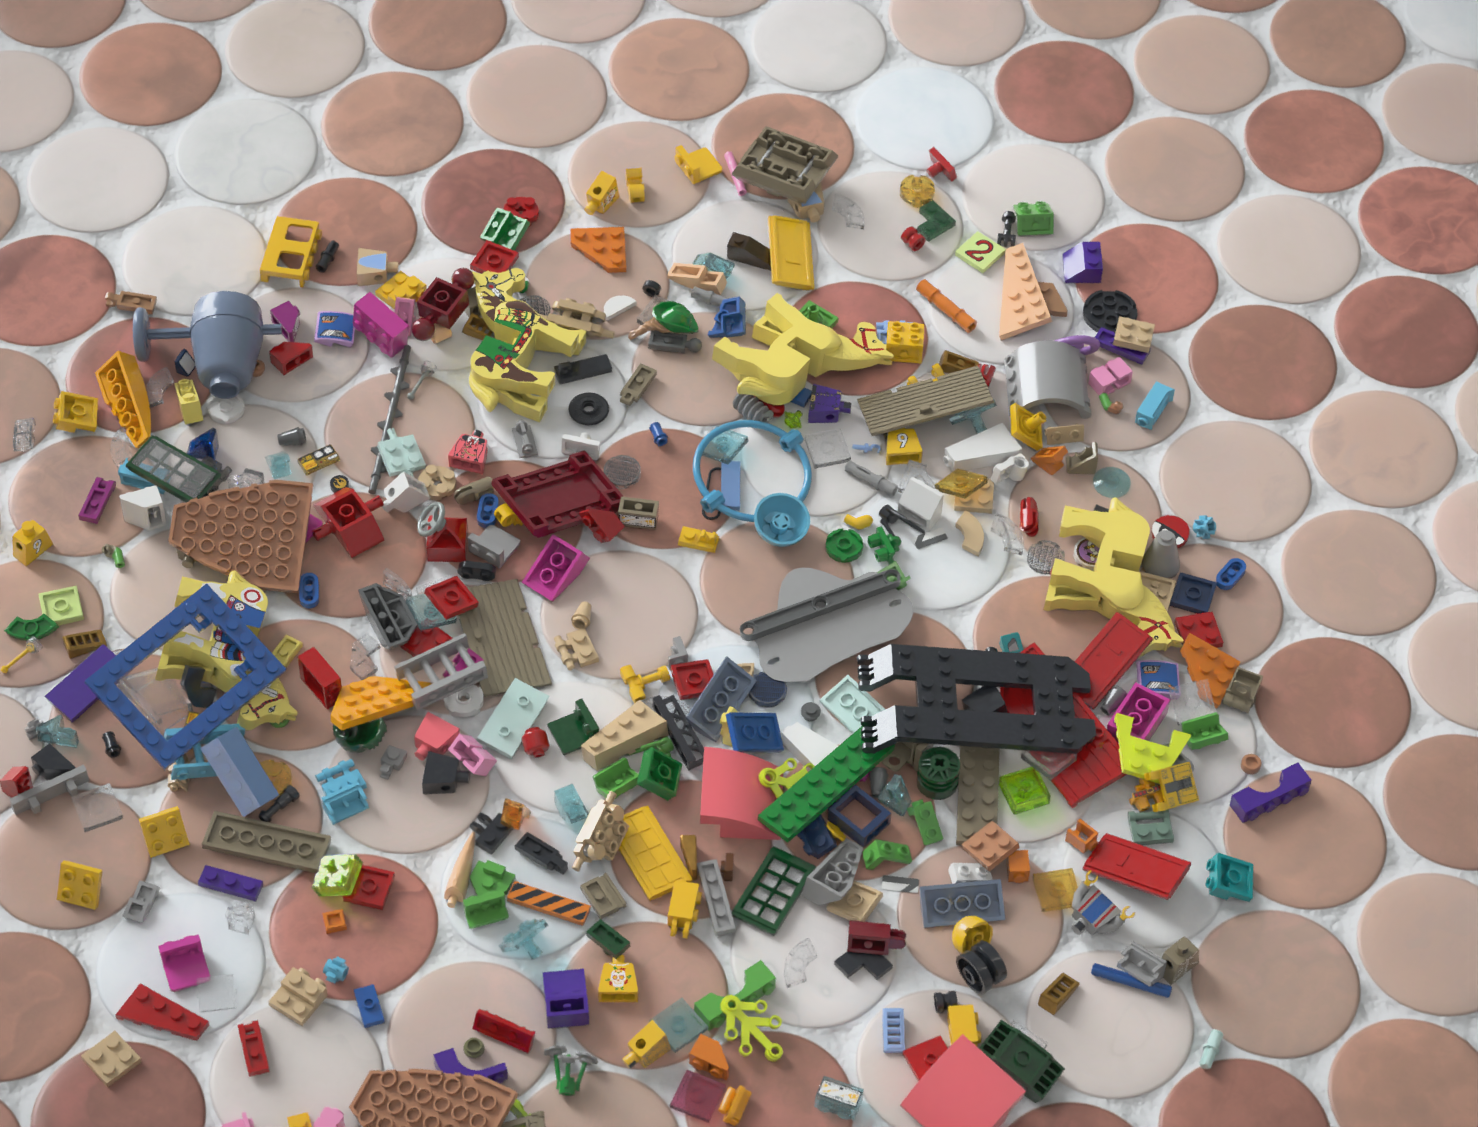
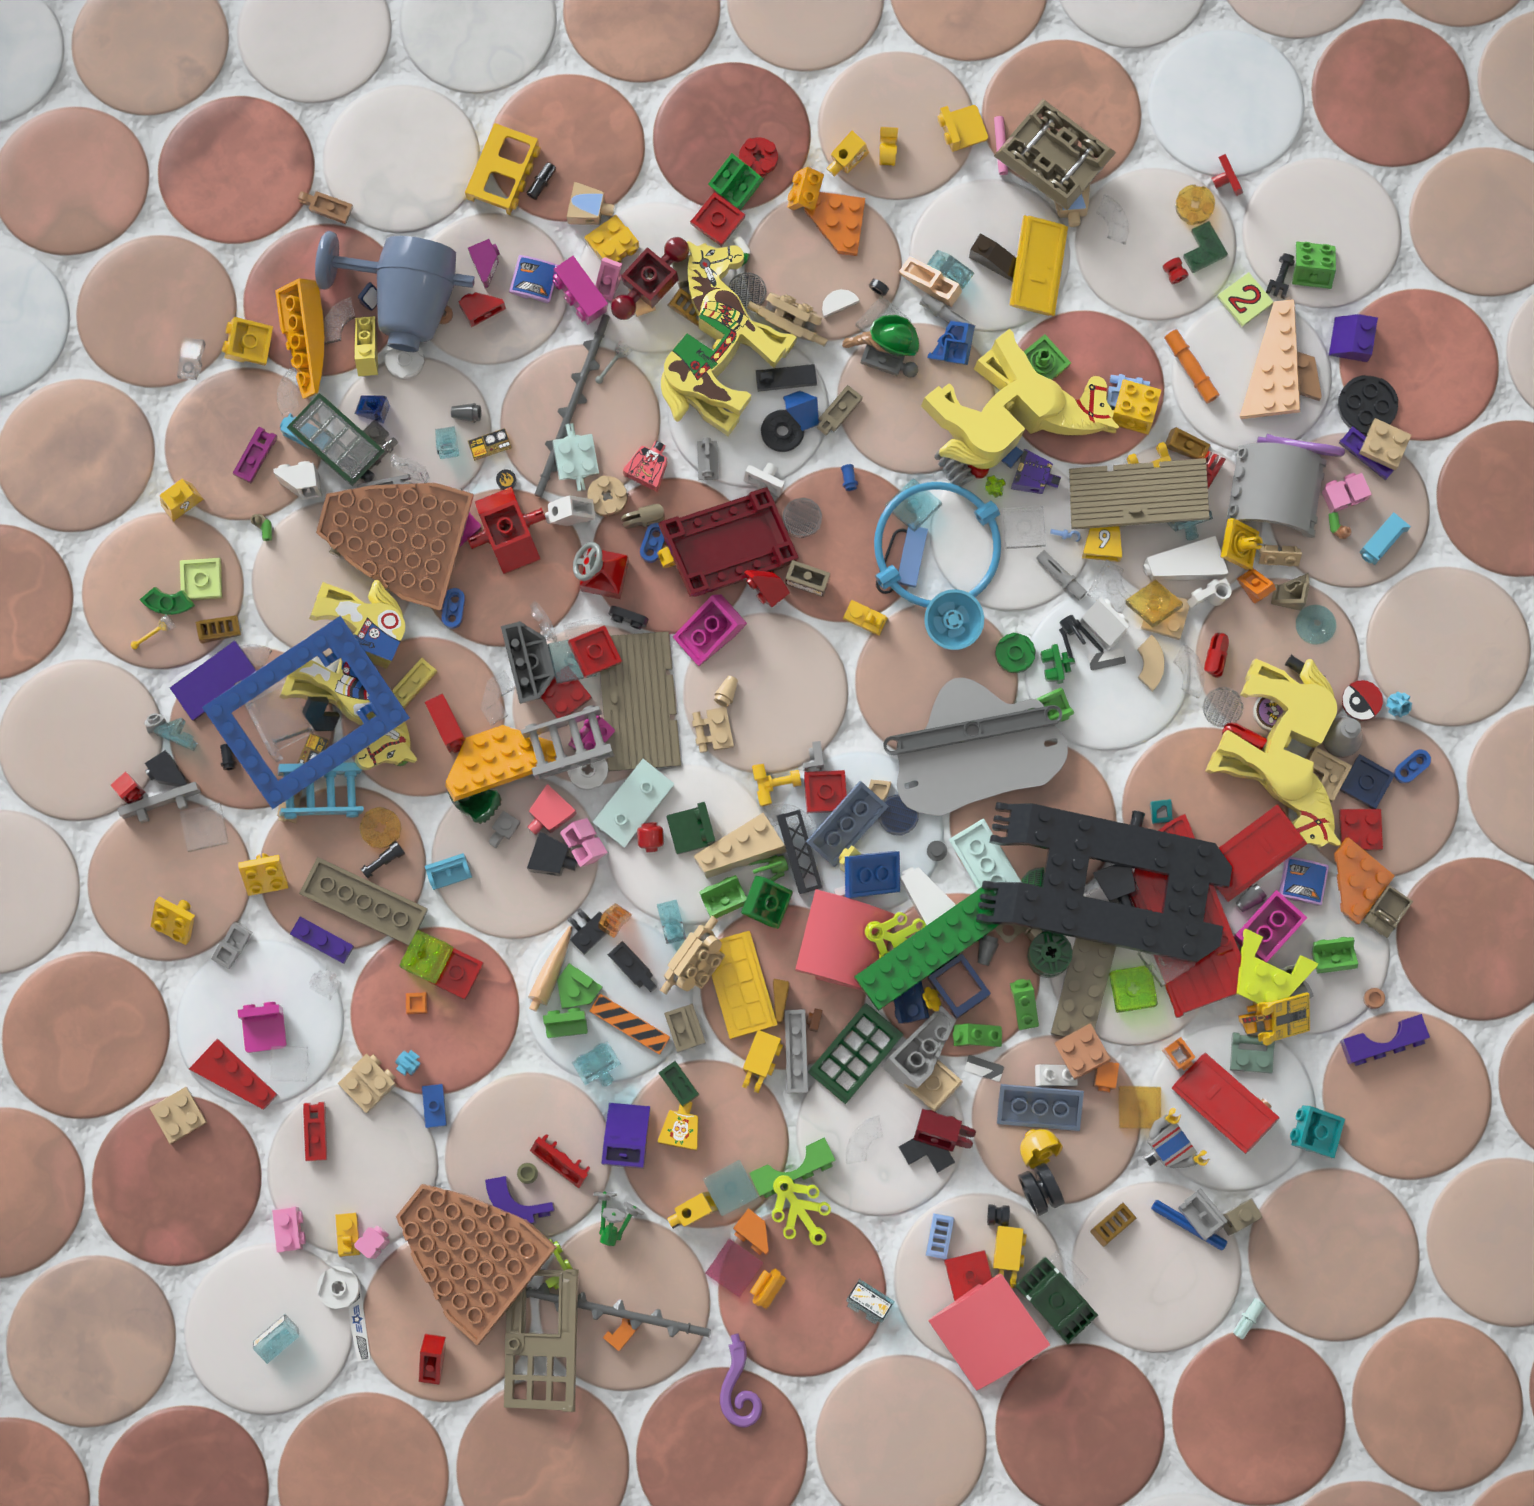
camera: 15 degrees right, 25 degrees up
(239, 771) = (345, 826): medium blue slope -> none
(346, 779) = (450, 847): medium azure plate -> none
(493, 545) = (652, 587): light grey bracket -> none
(568, 226) = (805, 189): none -> light orange bracket
(607, 387) = (803, 409): none -> blue slope
(860, 522) = (1037, 629): yellow arm -> none
(895, 795) = (999, 971): clear light blue slope -> none
(1191, 700) = (1331, 918): clear tile -> none

